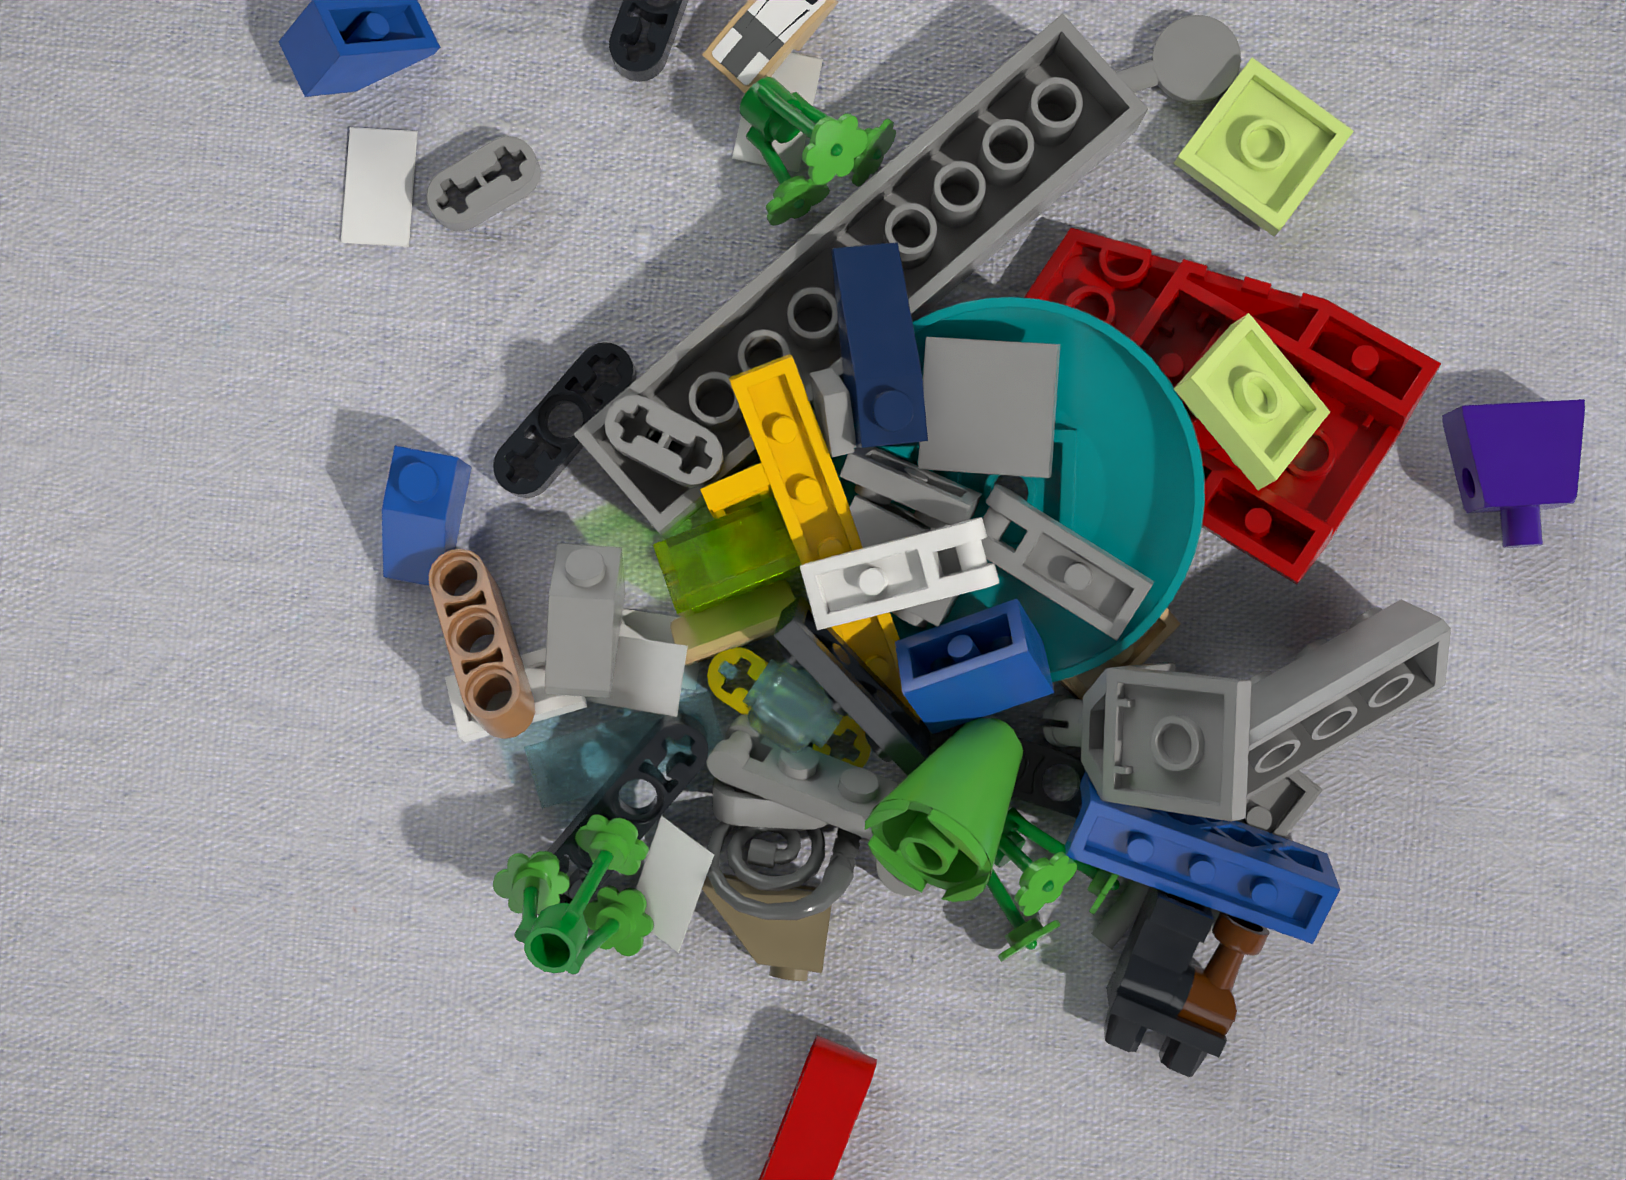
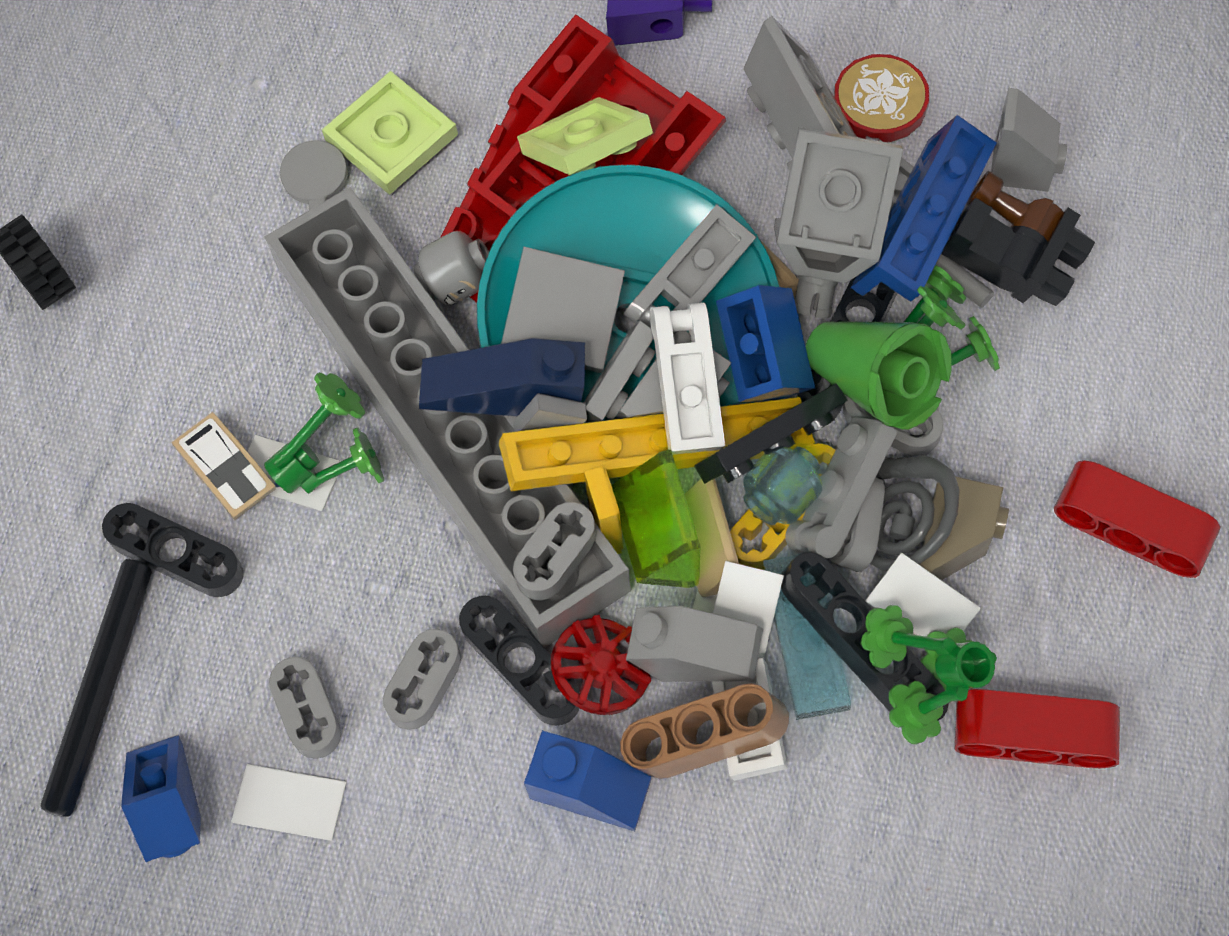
camera: 80 degrees left, 20 degrees down
(535, 298) = (411, 672): none -> light grey beam
(535, 1038) = (1038, 729): none -> red beam
(562, 512) = (598, 666): none -> red wheel
(1054, 259) = (451, 267): none -> light grey head
(1322, 984) = (1027, 145): none -> light grey slope
(1392, 787) = (882, 97): none -> tile

